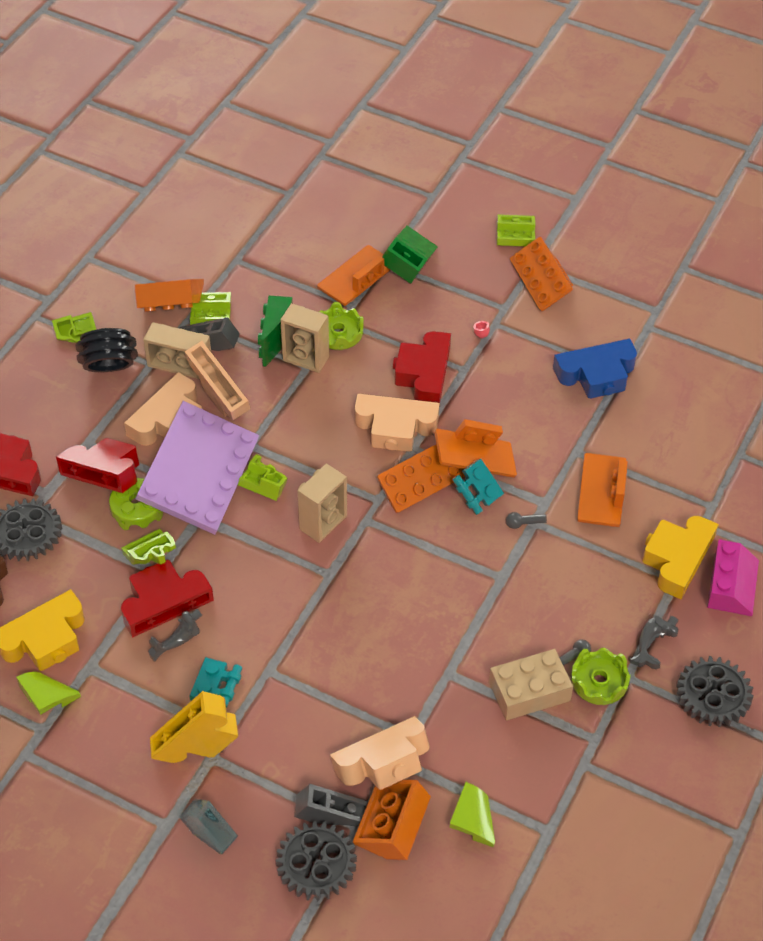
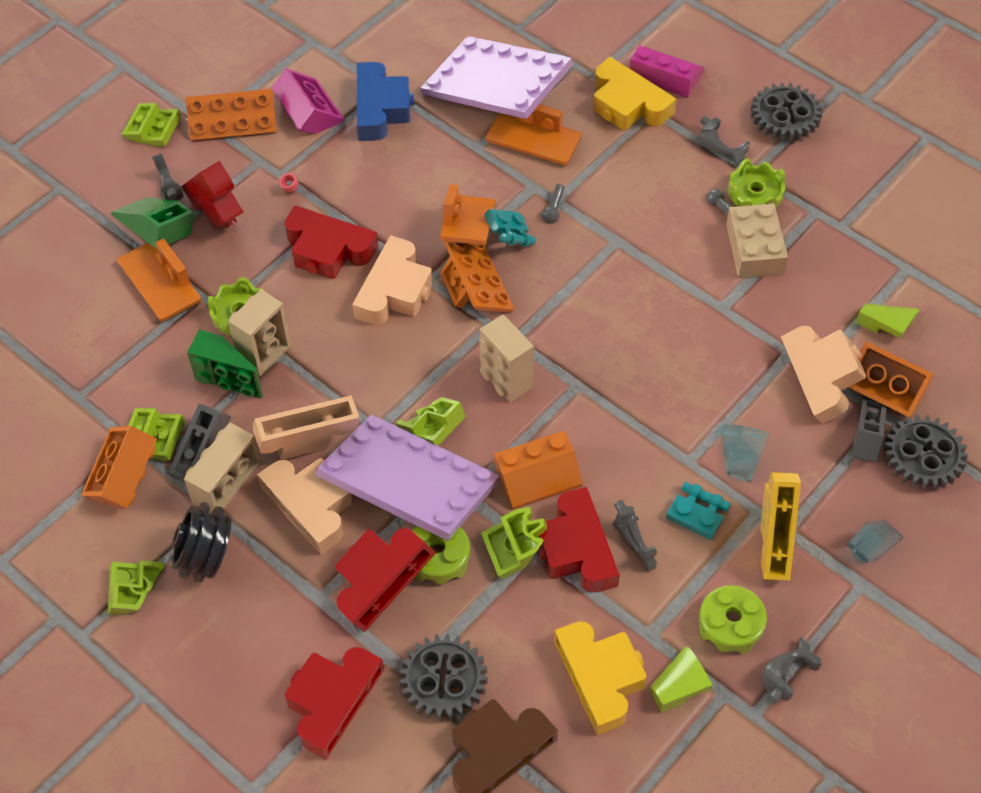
camera: 75 degrees left, 5 degrees up
(61, 758) = (774, 672): none -> dark grey animal
(107, 733) = (730, 635): none -> lime plate
(228, 556) = (538, 470): none -> orange slope
(284, 708) = (742, 449): none -> clear light blue slope
(435, 276) = (212, 193): none -> red brick
(448, 259) = (169, 188): none -> dark grey animal
(577, 320) = (306, 102): none -> dark pink slope
(654, 441) = (497, 77): none -> plate

